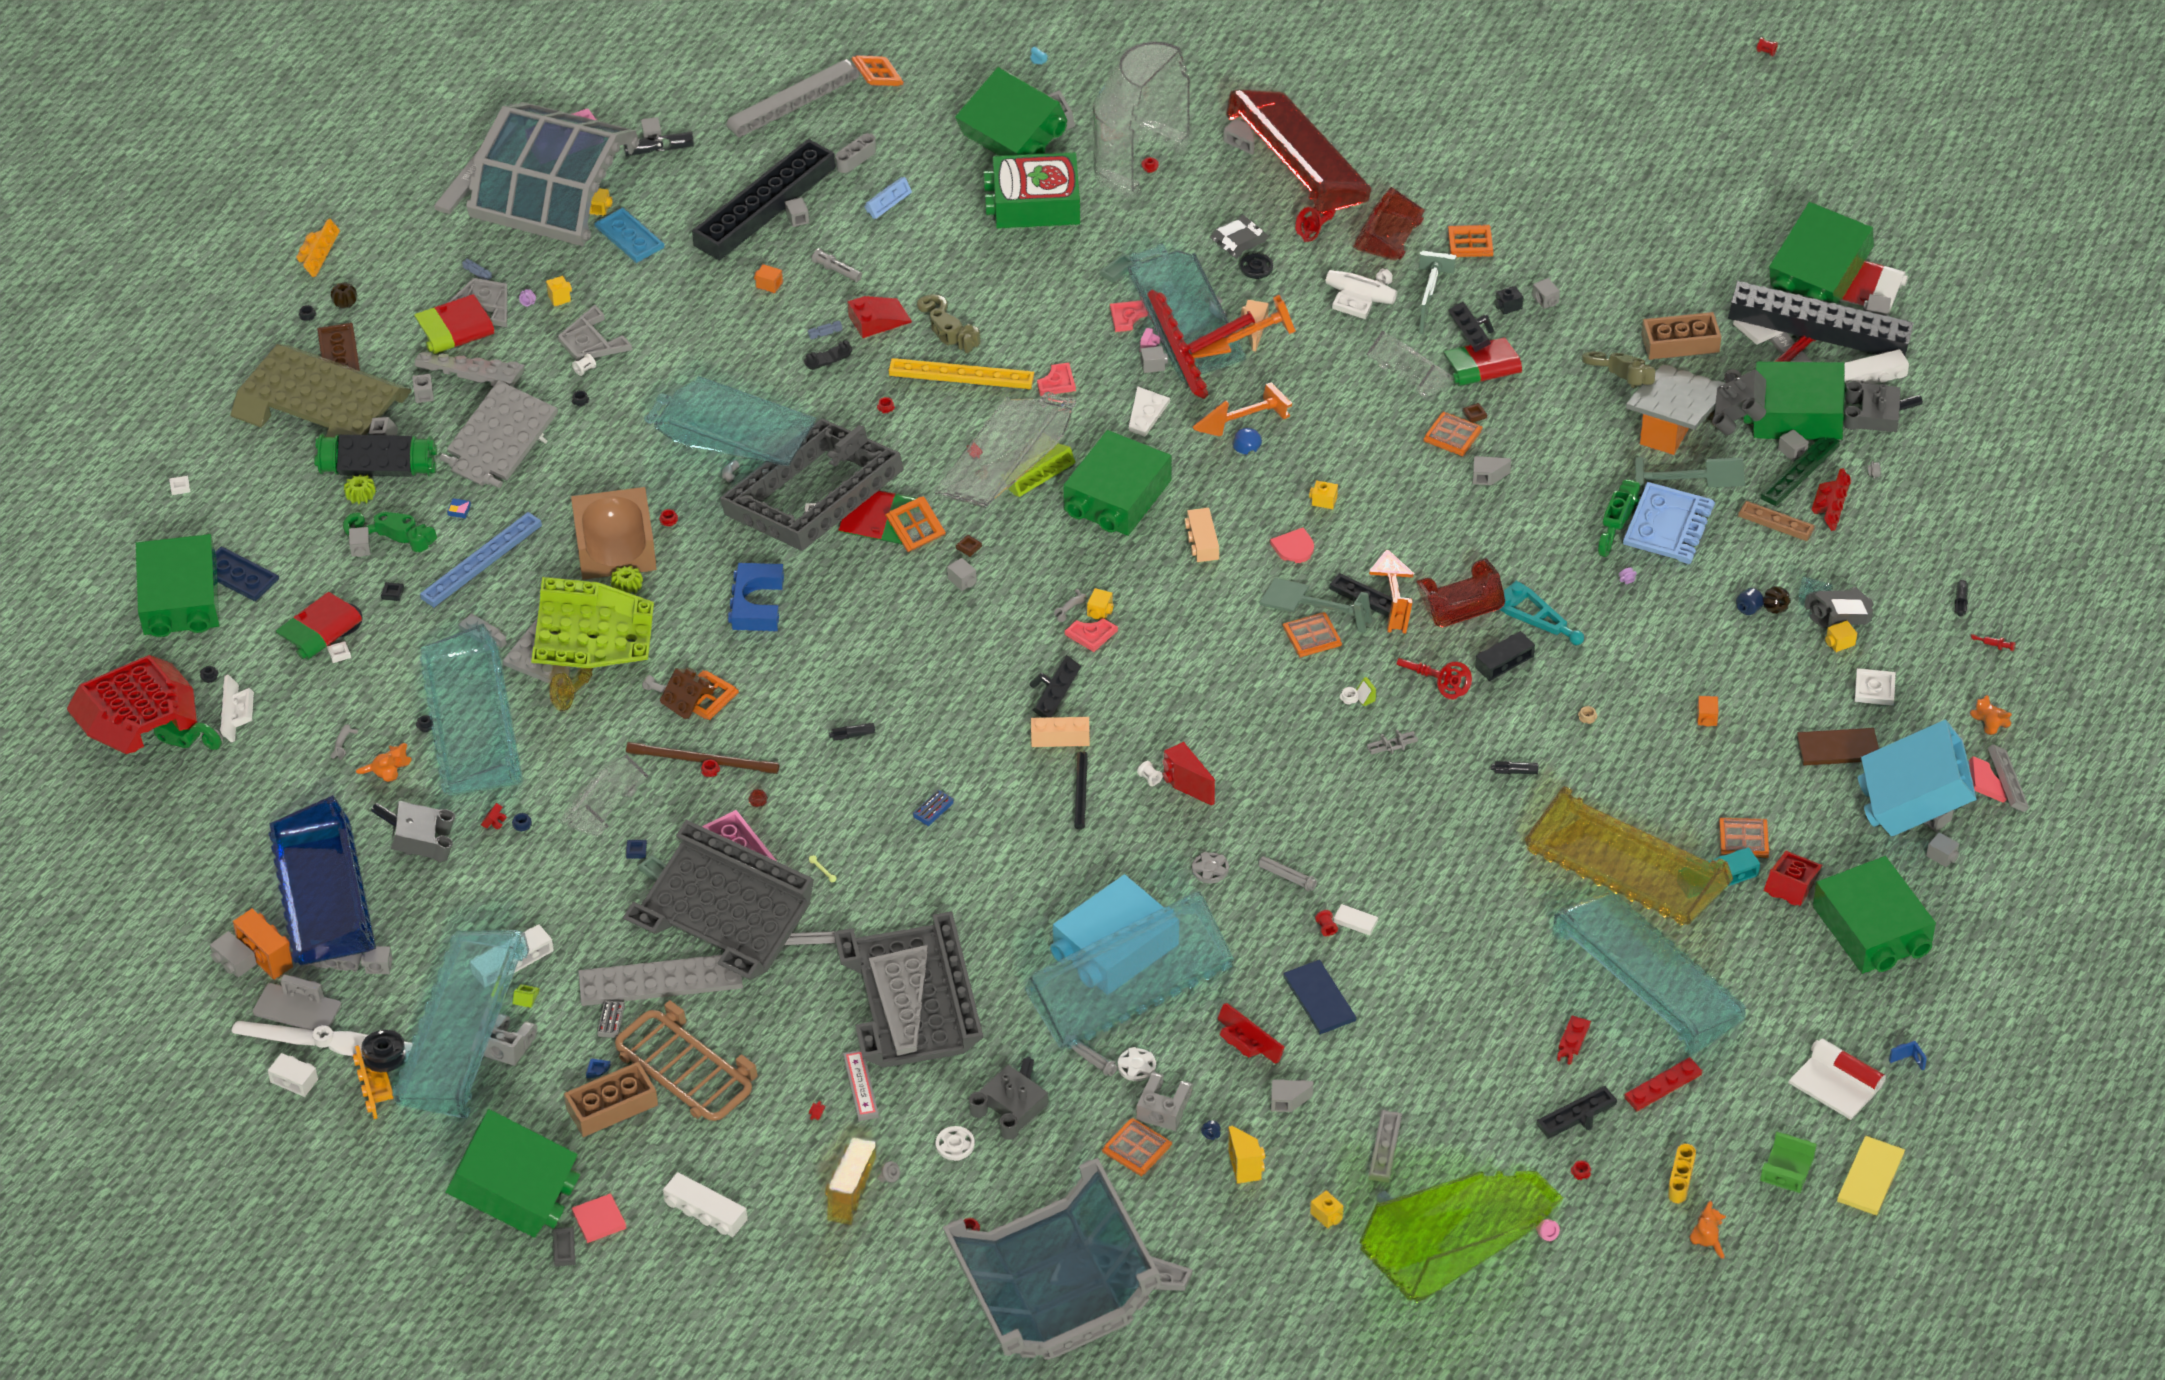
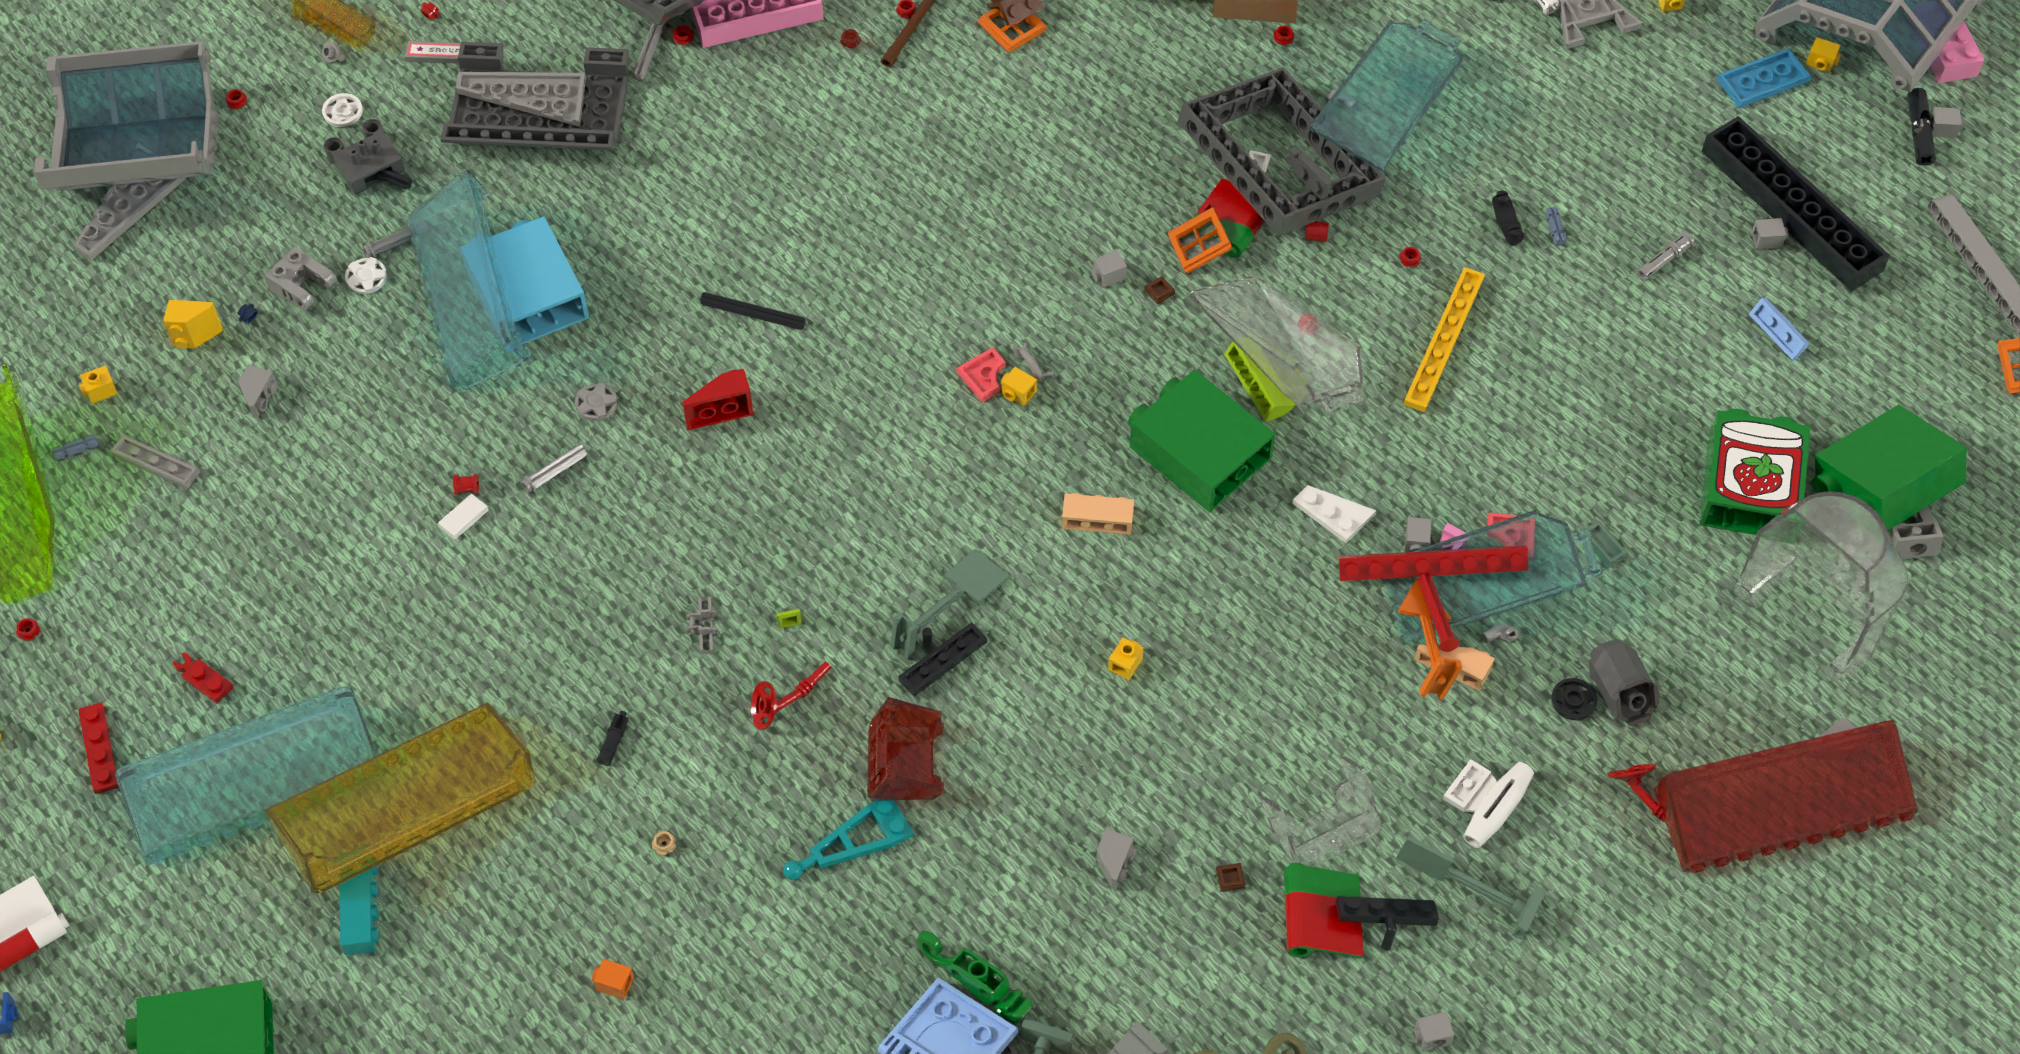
camera: 105 degrees right, 10 degrees up
(748, 579) = (1115, 68): blue arch -> none
(768, 278) = (1653, 186): orange brick -> none
(813, 859) = (753, 70): yellowish green hinge -> none
(852, 731) = (913, 132): black piece -> none
(855, 153) = (1870, 312): light grey beam -> none
(876, 314) = (1567, 277): red slope -> none
(933, 808) = (780, 179): tile -> none
(948, 326) = (1529, 338): olive animal -> none
(1056, 686) = (908, 318): black plate -> none
(1058, 380) = (1411, 435): coral tile -> none
(1060, 731) = (837, 305): light nougat brick -> none
(1136, 1147) = (261, 250): clear piece -> none
(1149, 773) = (752, 373): white bush -> none
(1150, 164) = (1799, 631): red plate -> none
(1216, 420) = (1305, 648): orange piece -> none
(1247, 440) = (1249, 604): blue hair -> none
(1247, 1036) = (347, 369): red bracket -> none
(1294, 546) = (1054, 608): coral tile -> none
(1312, 634) = (904, 588): clear piece -> none
(1319, 997) = (374, 455): dark blue tile -> none
(1349, 695) = (791, 593): white plate -> none
(1384, 276) = (1516, 841): white plate -> none
(1389, 226) = (1606, 869): clear red windscreen -> none
(1400, 609) = (982, 698): orange piece -> none
(1452, 433) = (1199, 840): clear piece -> none
(1470, 230) = (1547, 967): orange piece -> none
(1504, 656) = (790, 777): black brick -> none
(1509, 300) = (1431, 979): black brick -> none
(1577, 1112) = (100, 648): black plate -> none
(1627, 575) = (877, 964): lavender plate -> none
(1744, 833) = (405, 956): clear piece -> none
(1792, 878) = (317, 986): red slope -> none

